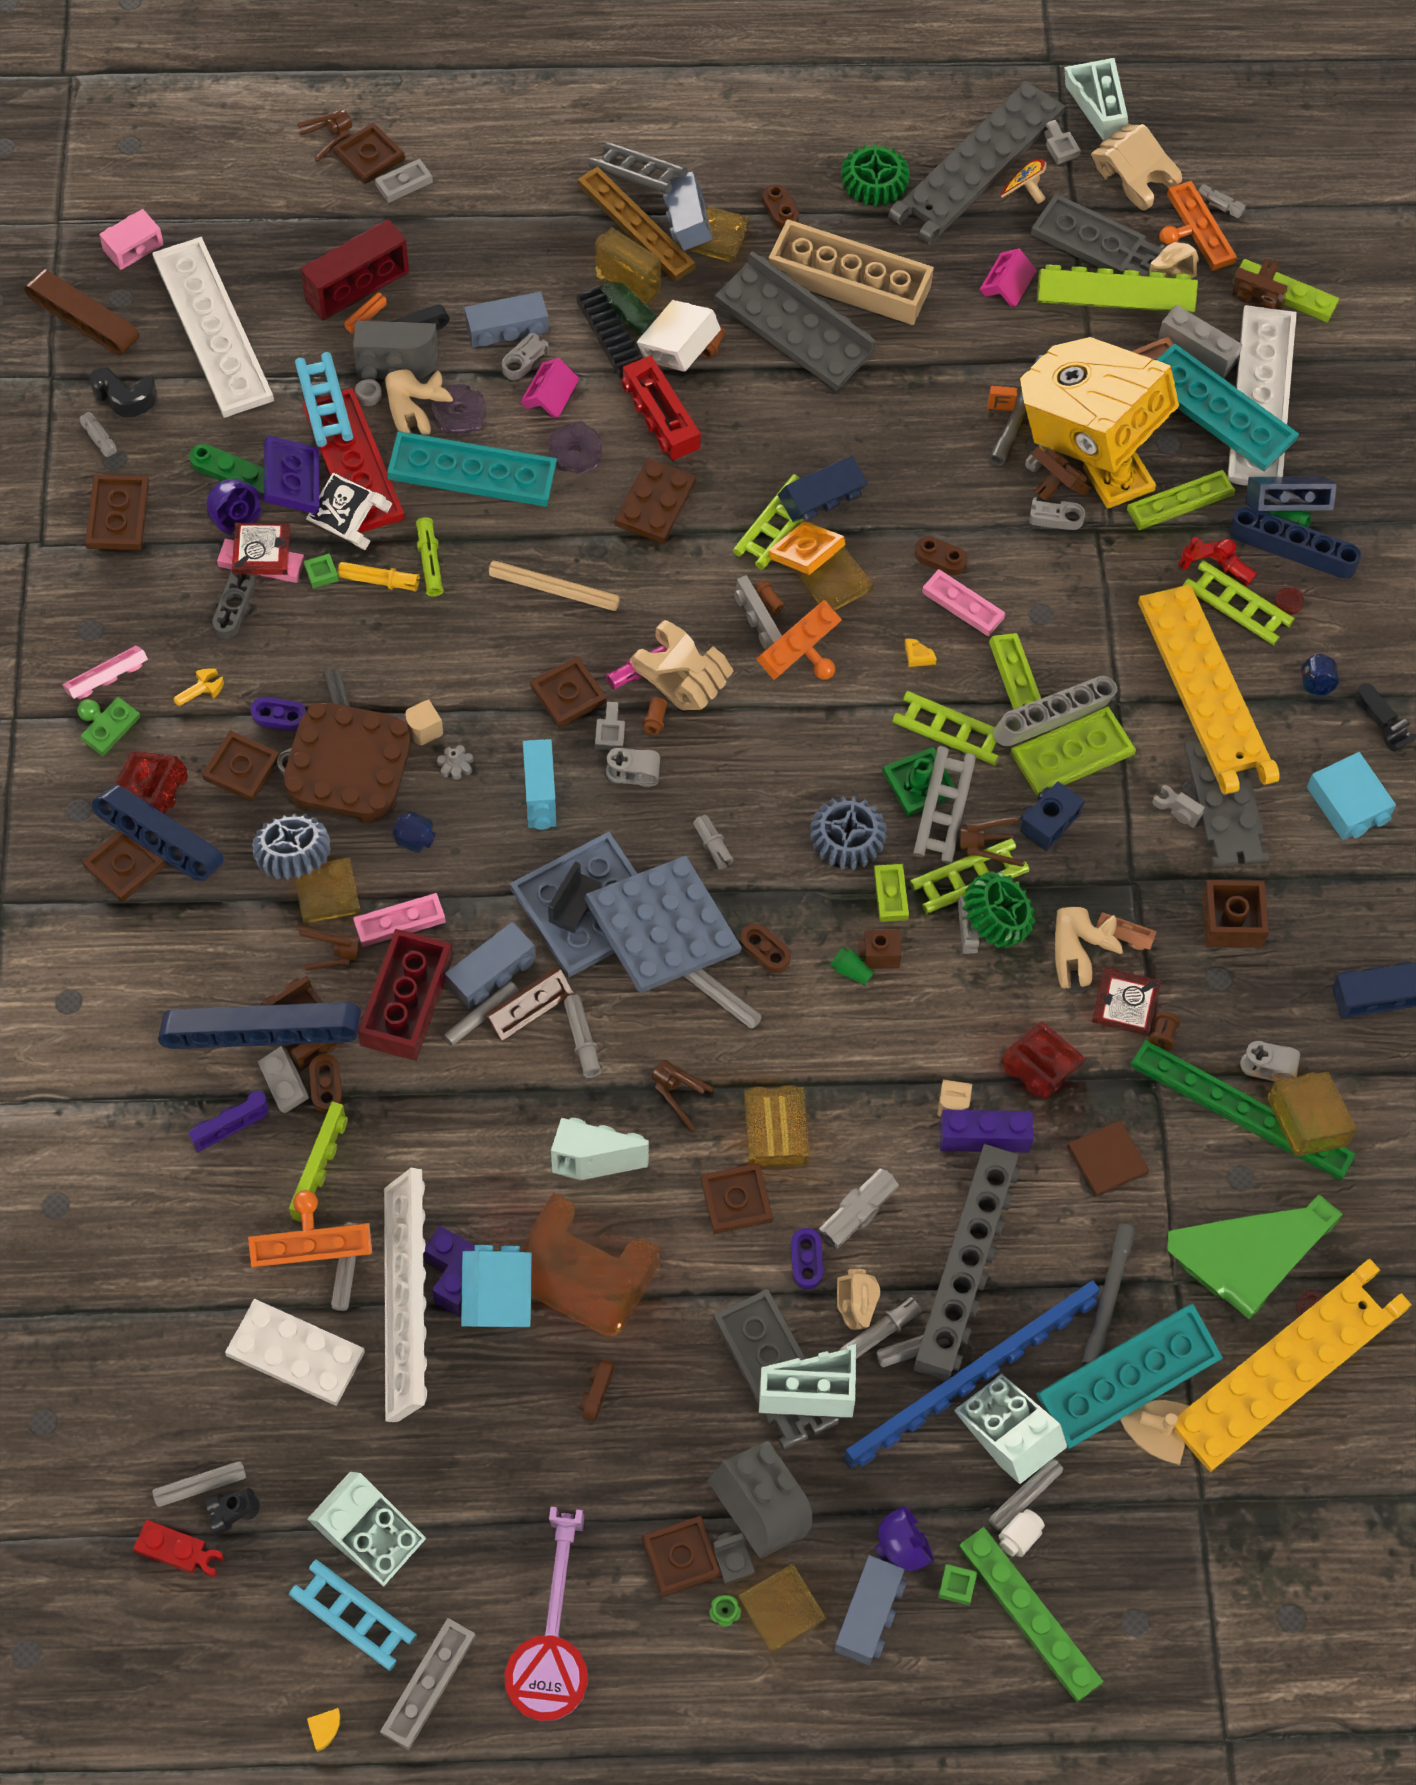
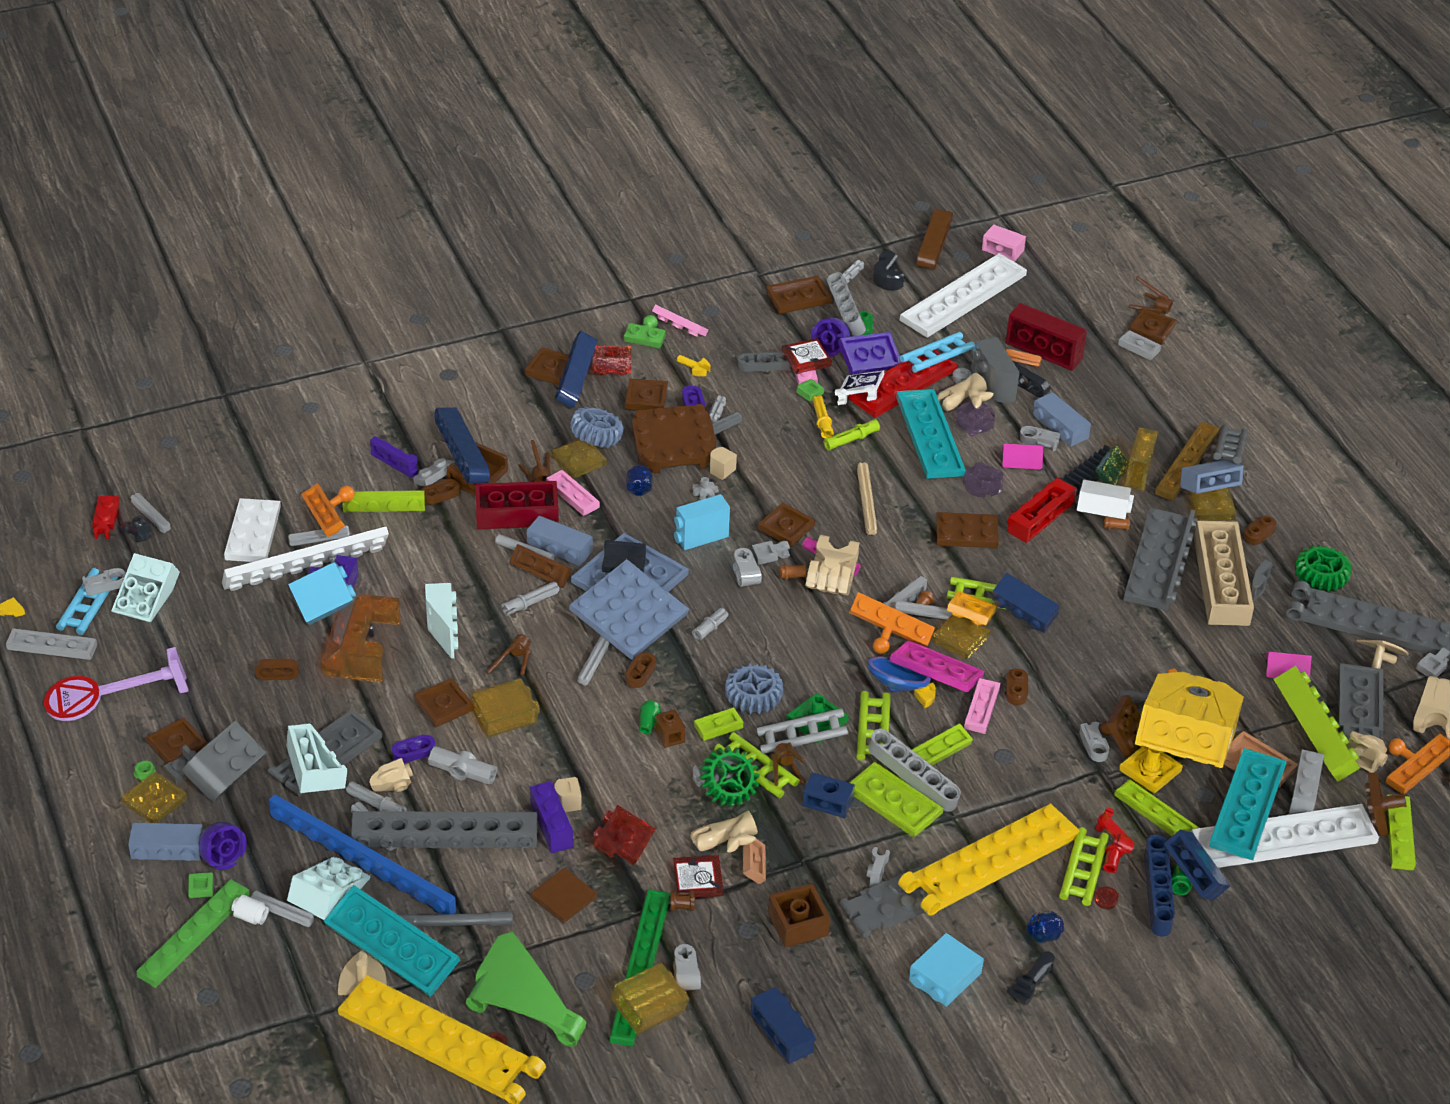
camera: 70 degrees right, 20 degrees down
(166, 458) = (846, 304): none -> light grey beam
(303, 690) = (717, 408): none -> light grey axle
(335, 1582) = (103, 582): none -> light grey piece
(788, 601) = (922, 610): none -> light grey axle
(859, 233) = (1260, 579): none -> dark grey slope
(884, 623) = (937, 666): none -> dark pink tile
(889, 665) = (896, 676): none -> blue dish

